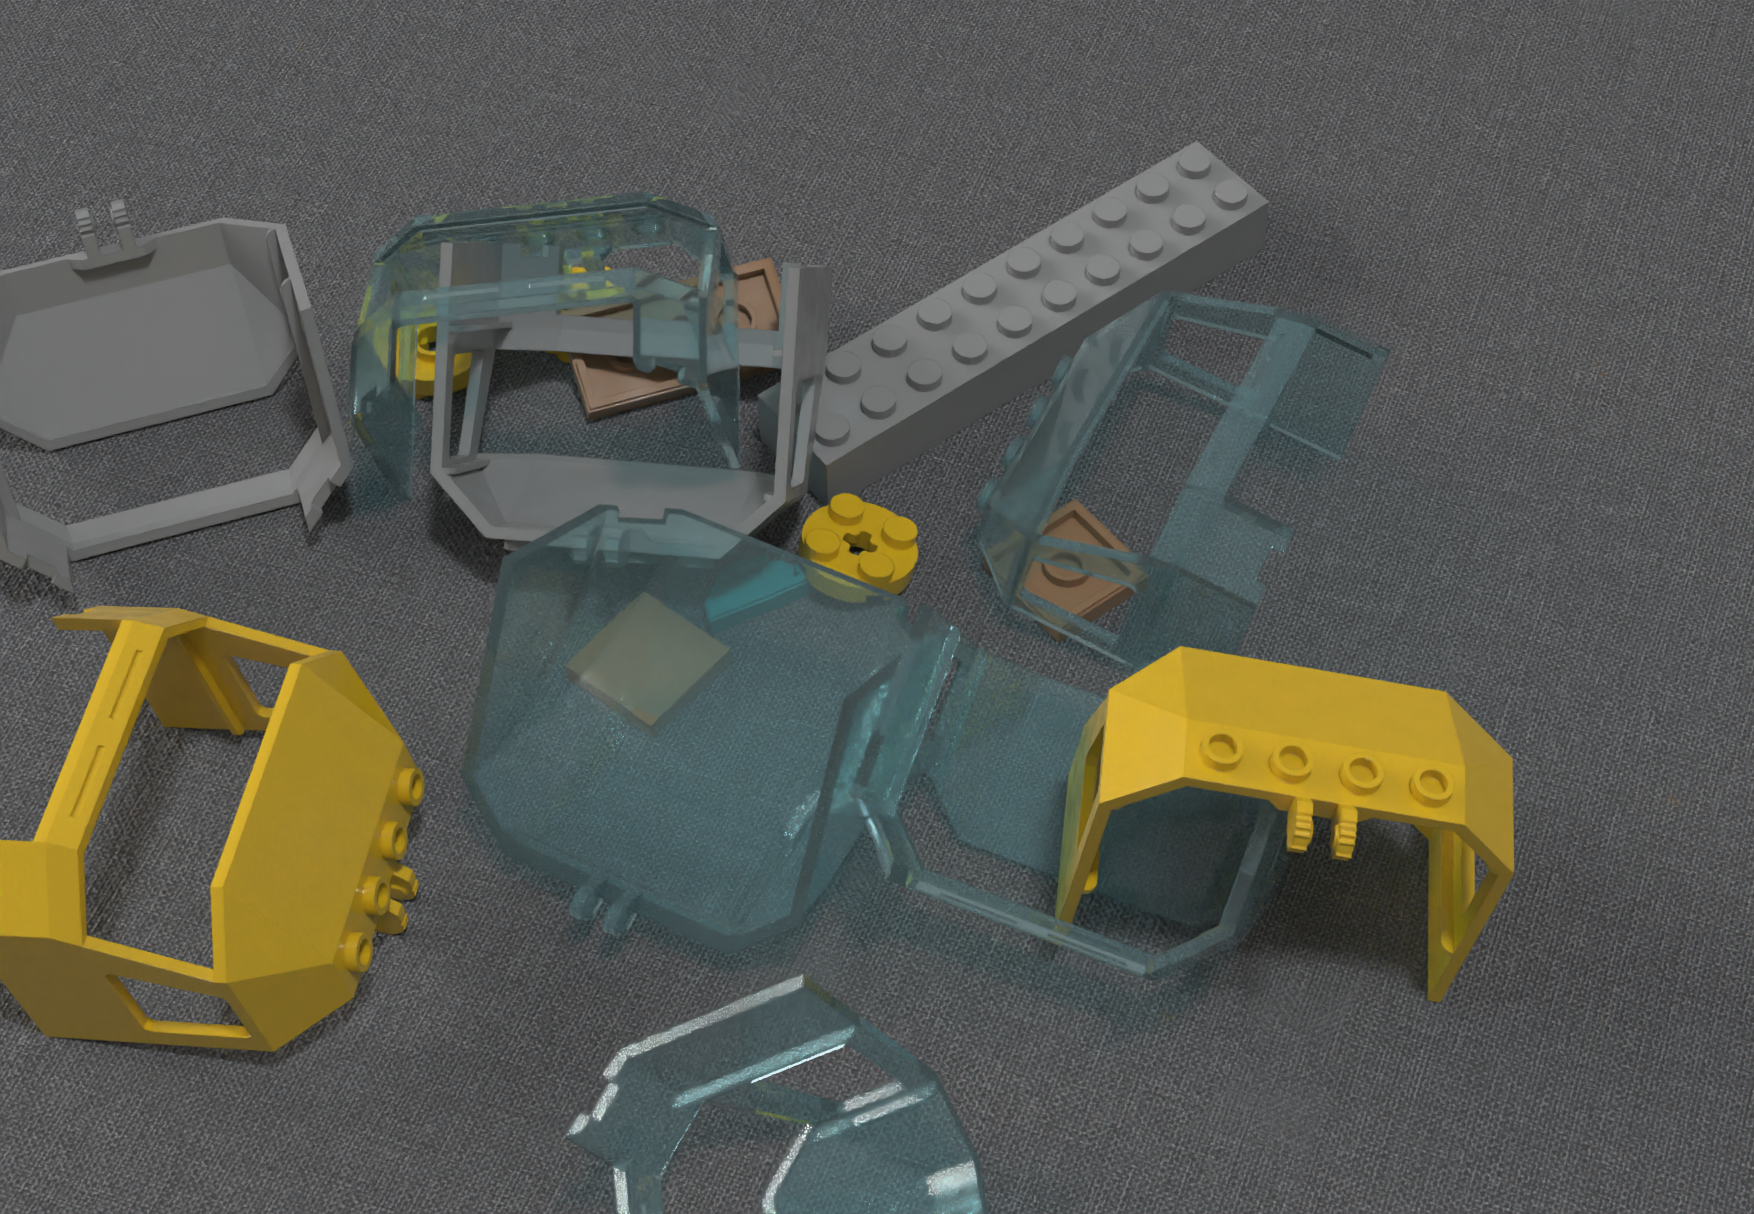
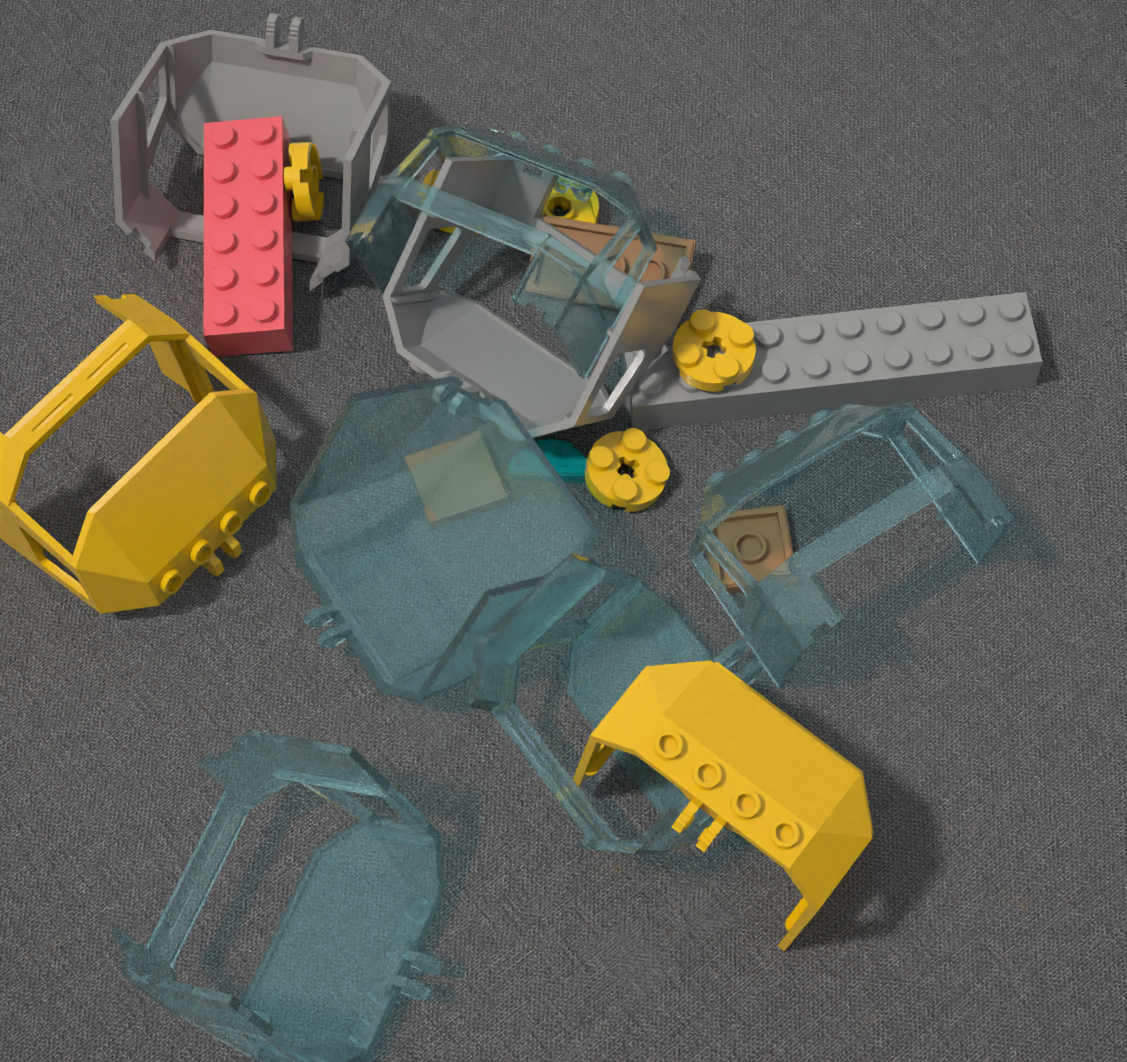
camera: 30 degrees right, 10 degrees up
(187, 494) = (247, 238): none -> coral brick
(224, 407) = (303, 180): none -> yellow plate
(898, 328) = (716, 329): none -> yellow plate

